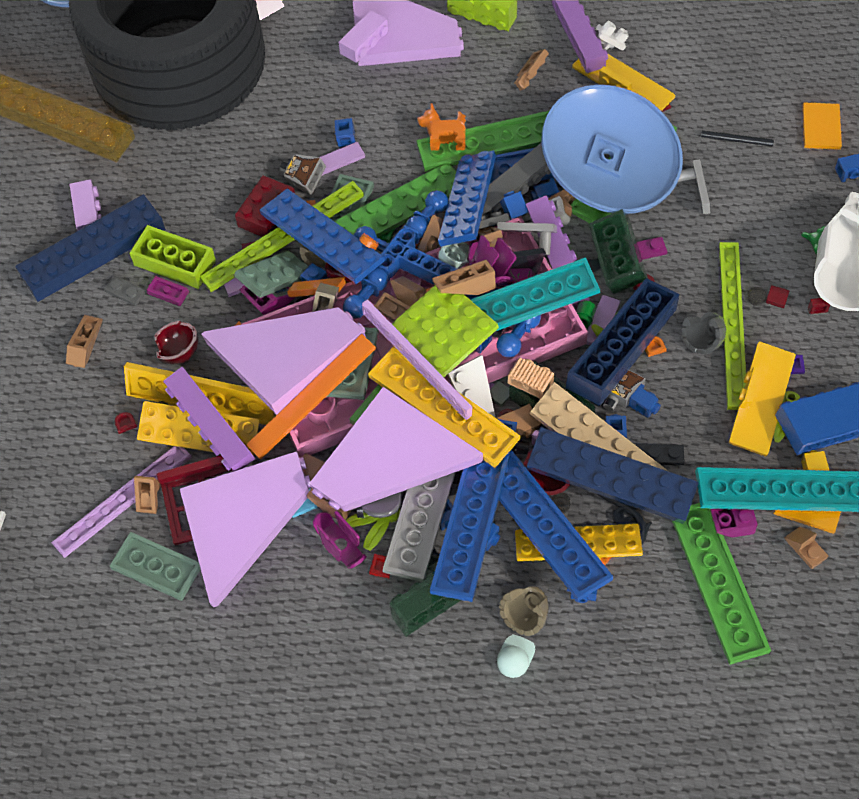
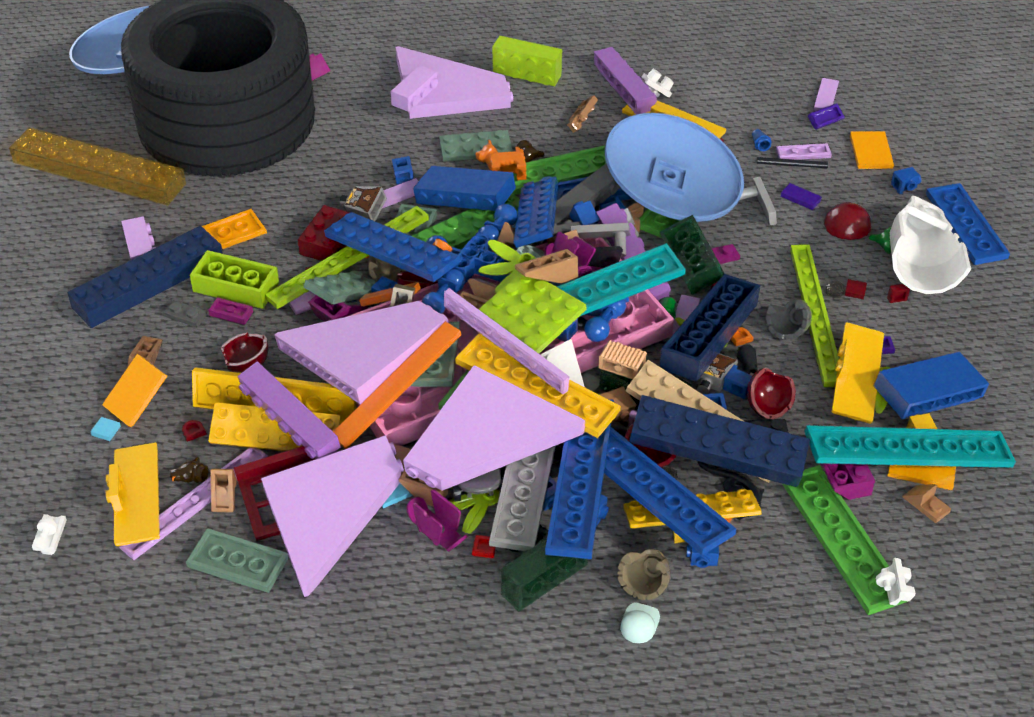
camera: 10 degrees left, 15 degrees down
(45, 416) = (105, 429): none -> medium azure tile
(67, 490) = (134, 494): none -> yellow bracket
(72, 379) = (134, 390): none -> light orange tile
(119, 469) = (190, 471): none -> dark brown animal
(177, 194) = (236, 228): none -> light orange tile
(402, 160) = (464, 188): none -> blue brick
(412, 103) = (465, 145): none -> sand green plate
(427, 270) = (508, 254): none -> lime plant
(472, 115) = (529, 151): none -> dark brown animal
(657, 374) = (748, 358): none -> black cone
(671, 419) = (770, 393): none -> dark red cylinder
(709, 110) = (761, 140): none -> blue cone
(740, 181) = (801, 196): none -> dark purple tile
(751, 125) = (800, 152): none -> lavender tile
(756, 637) = (894, 582): none -> white hips
(781, 82) = (826, 116): none -> dark purple tile
(782, 216) = (848, 221): none -> dark red cylinder
(785, 54) = (826, 93): none -> lavender tile

